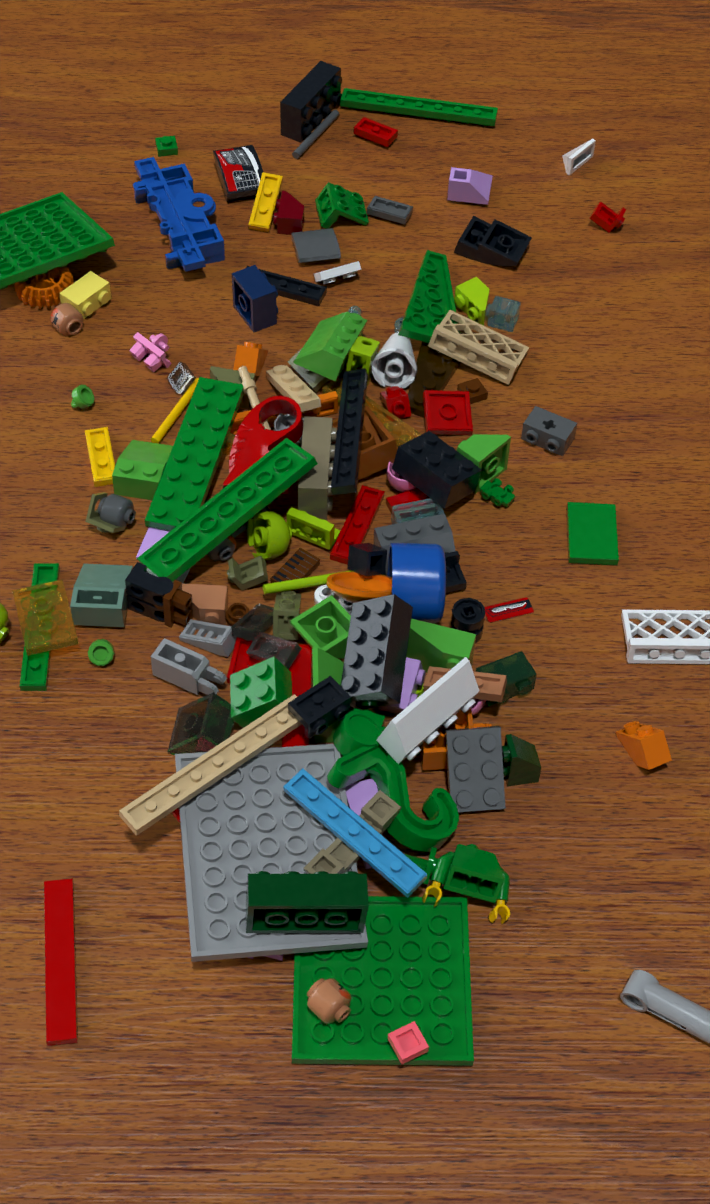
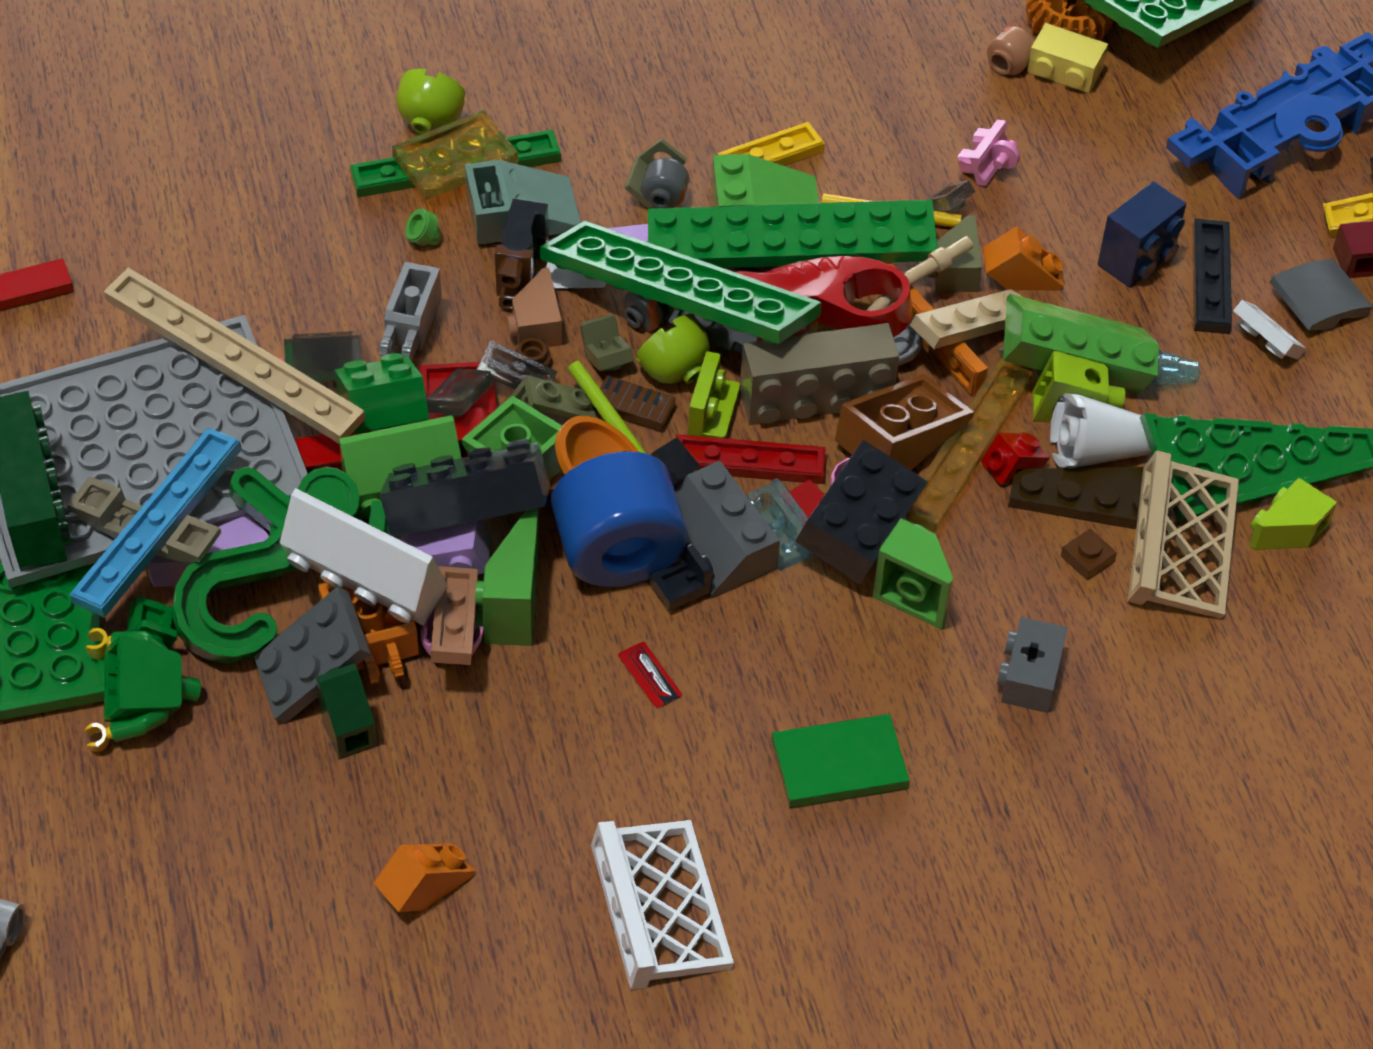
camera: 75 degrees right, 0 degrees up
(82, 397) = (867, 102): bright green tile -> none
(221, 645) = (481, 332): light grey slope -> none
(320, 706) = (343, 438): black bracket -> none
(349, 432) = (893, 388): black plate -> none
(447, 412) = (1017, 523): red tile -> none
(468, 616) = (590, 612): black wheel -> none
(497, 494) = (874, 621): green piece -> none
(503, 313) = (1281, 563): clear light blue brick -> none
(519, 673) = (503, 681): clear green brick -> none

